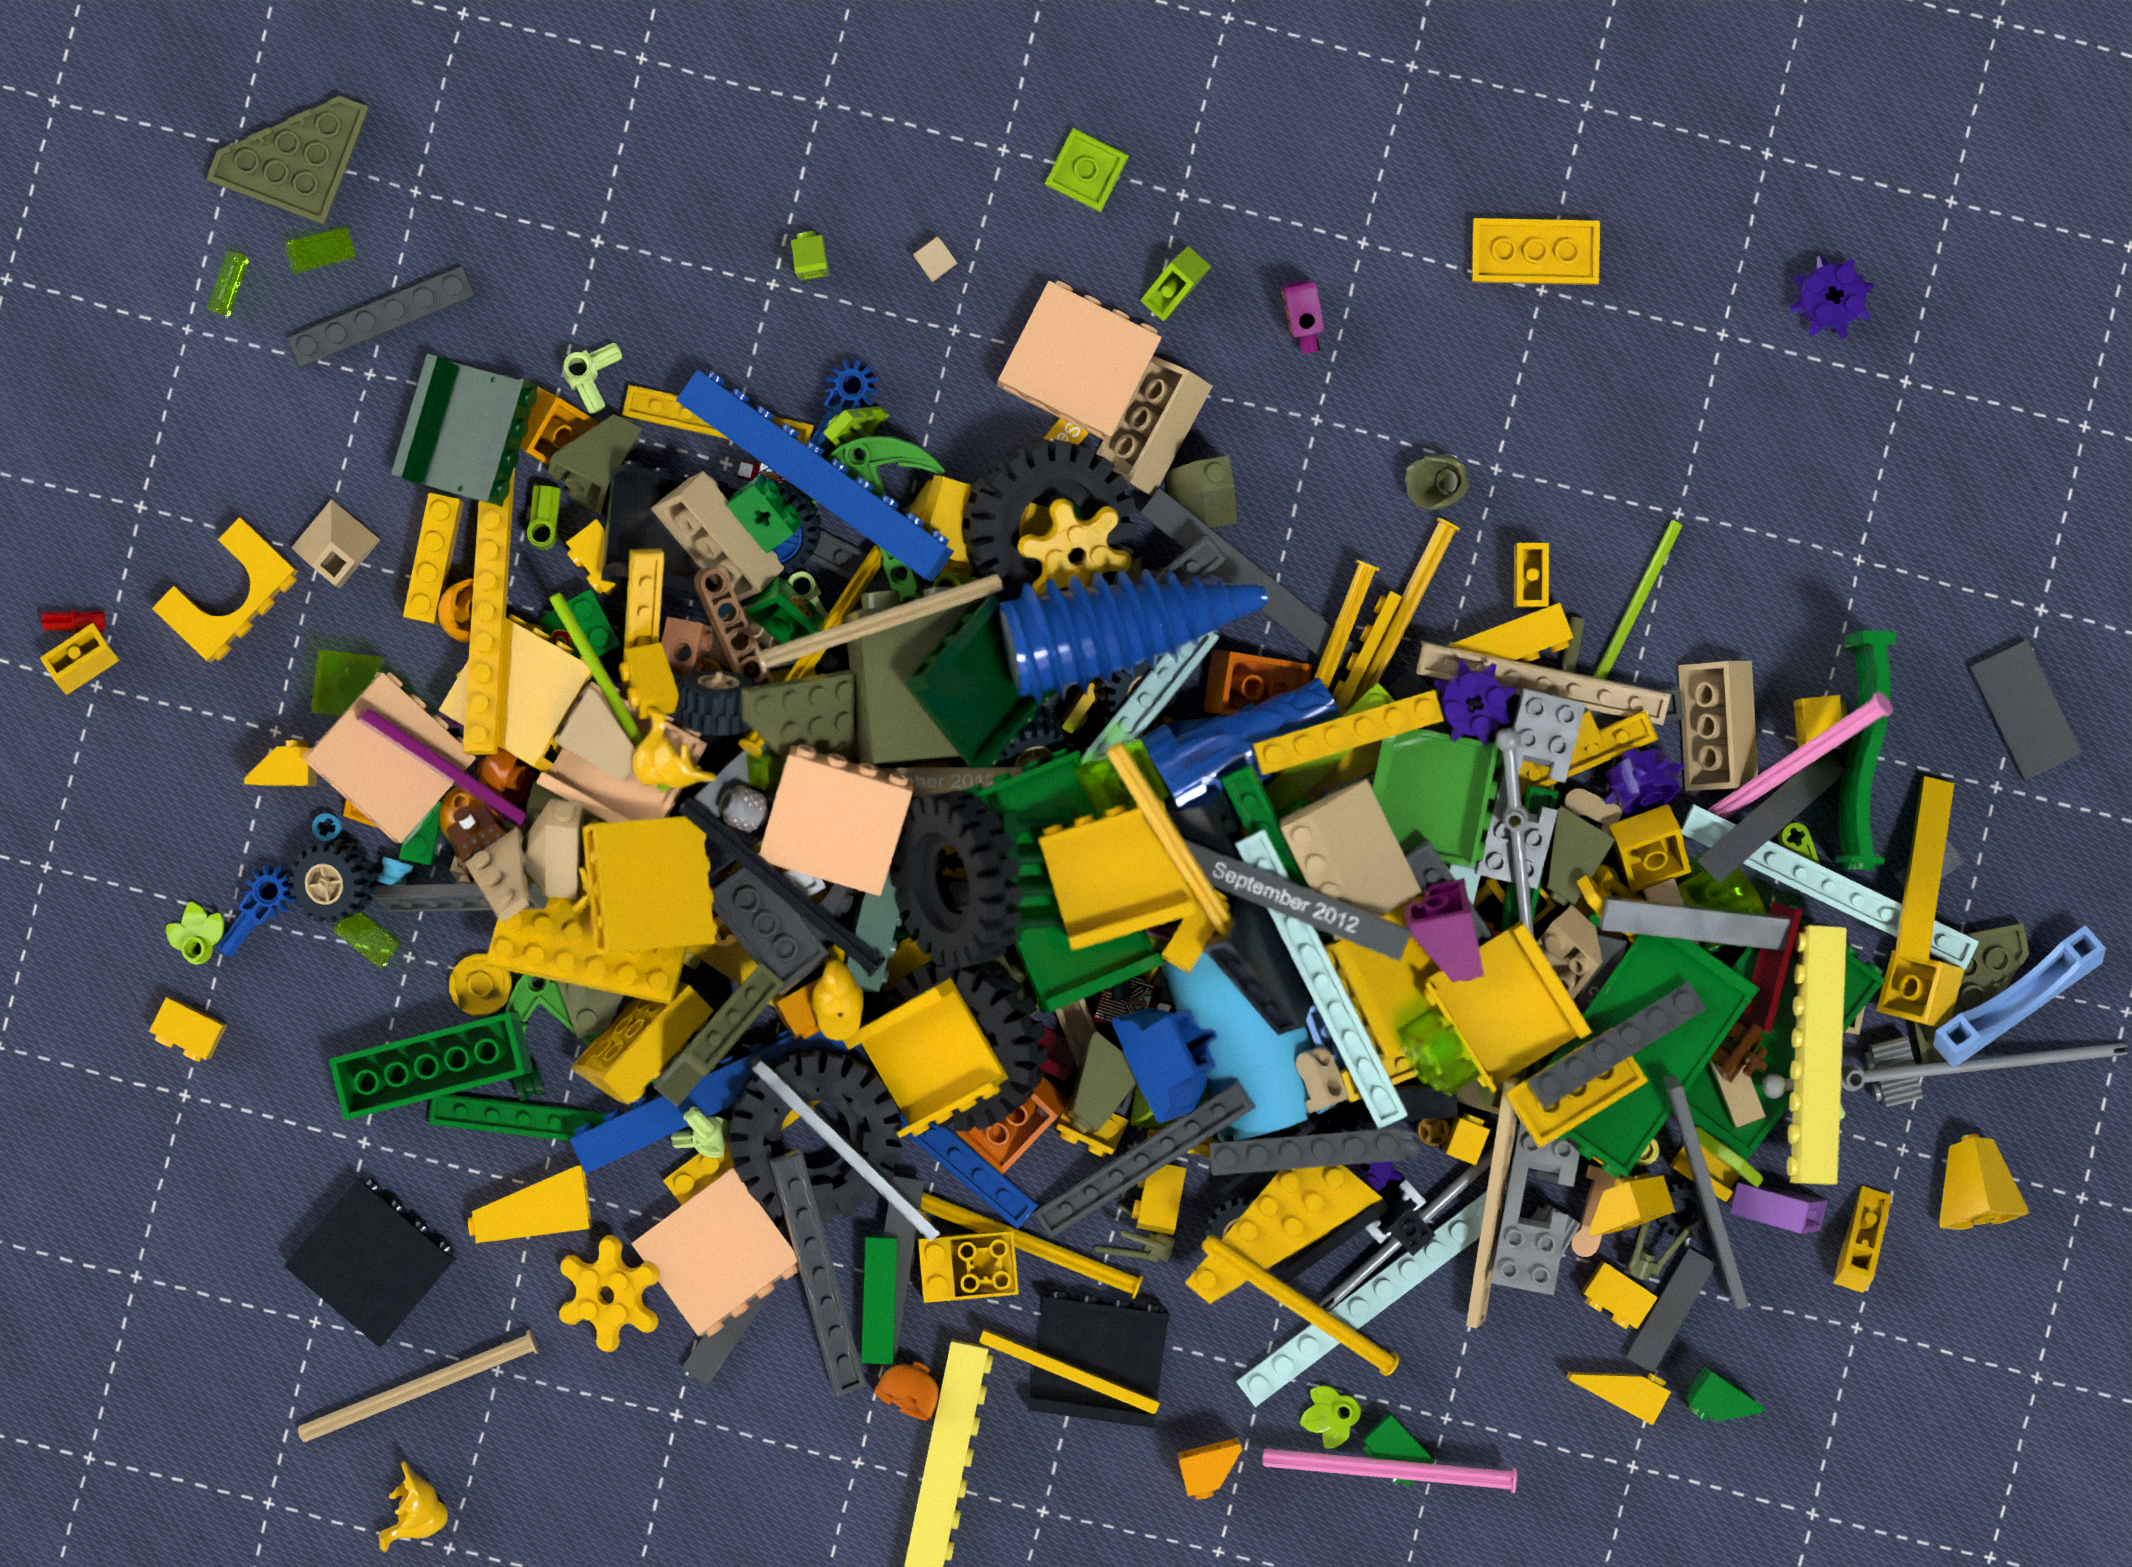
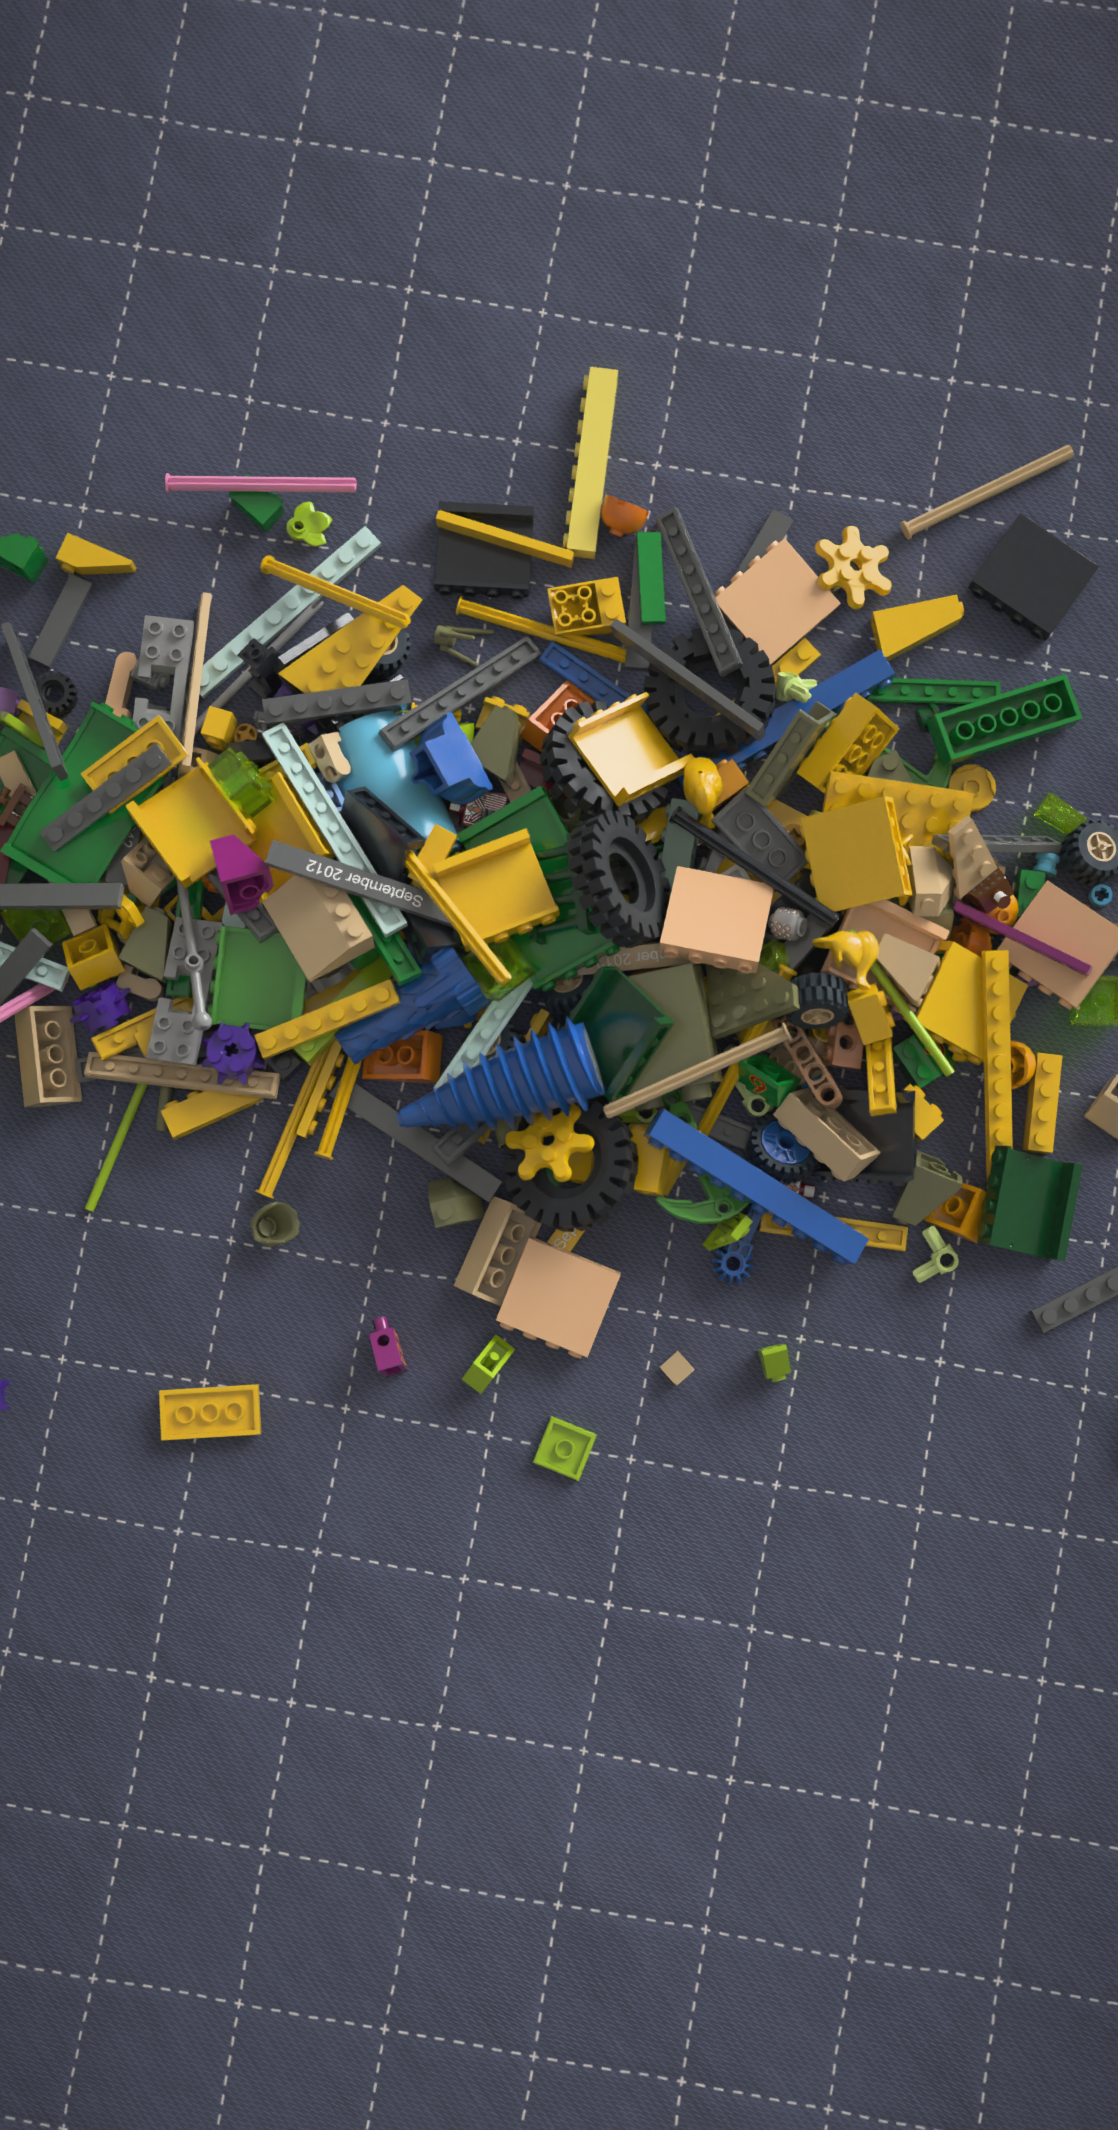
camera: 175 degrees right, 5 degrees down
(418, 1511) = (977, 401): yellow piece -> none
(544, 514) = (960, 1147): lime piece -> none
(750, 508) = (793, 1153): green brick -> none
(1160, 1200) = (446, 666): yellow brick -> none
(1208, 1466) = (395, 477): light orange slope -> none
(1531, 575) = (197, 1158): yellow brick -> none
(1619, 1295) = (99, 627): yellow brick -> none
(1631, 1204) = (90, 686): yellow slope -> none
(1642, 1261) = (83, 653): olive plant -> none

